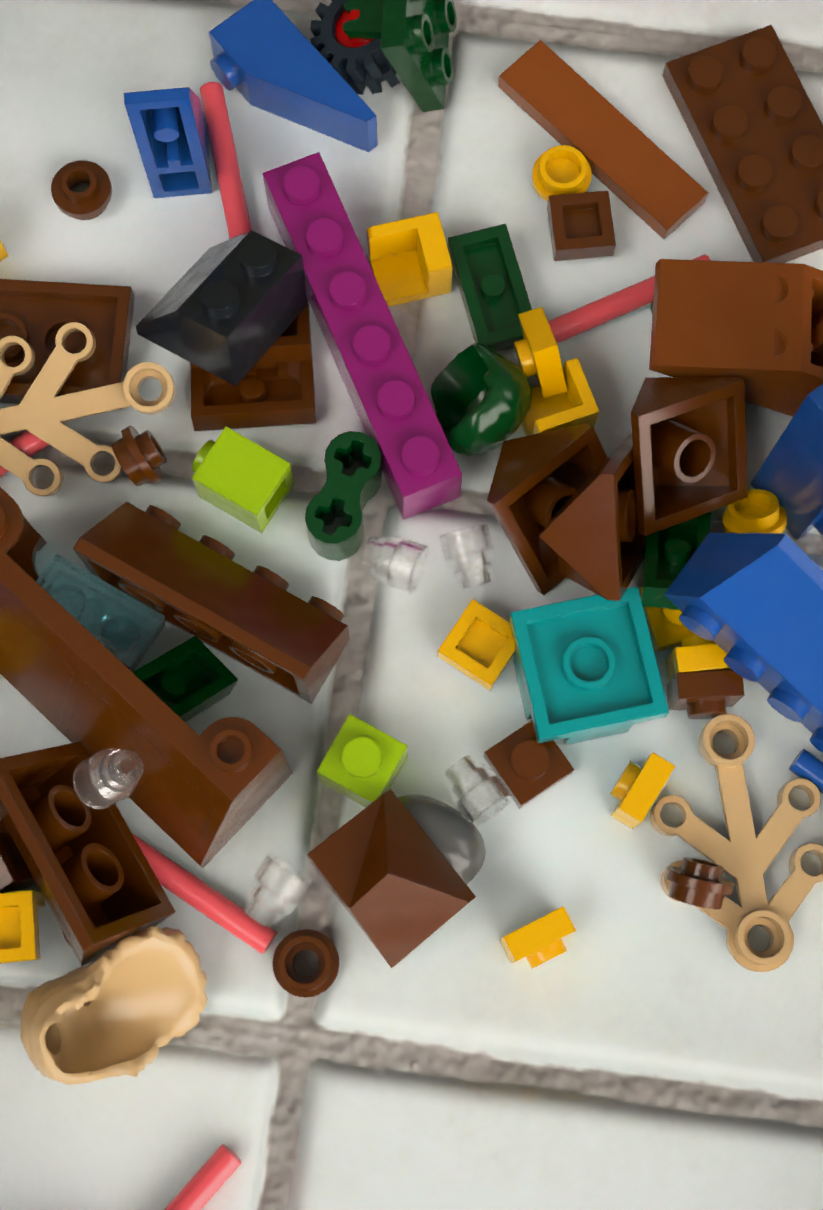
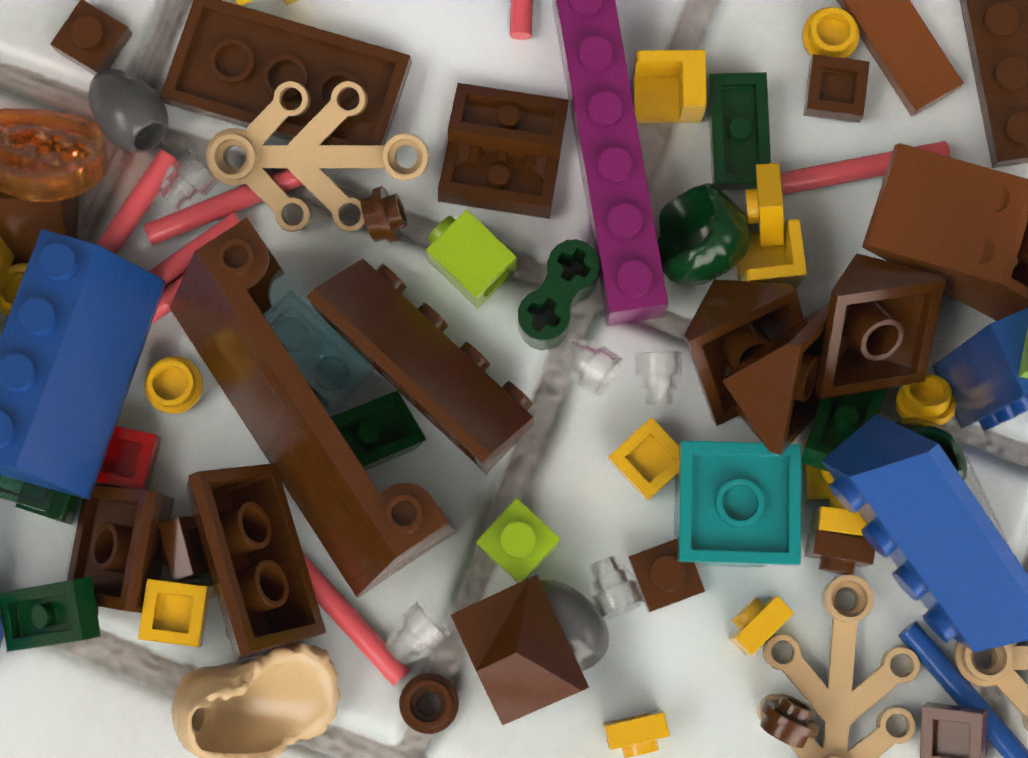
camera: 20 degrees right, 5 degrees up
(107, 777) = (292, 504): clear hose -> none
(230, 306) = (494, 95): black slope -> none

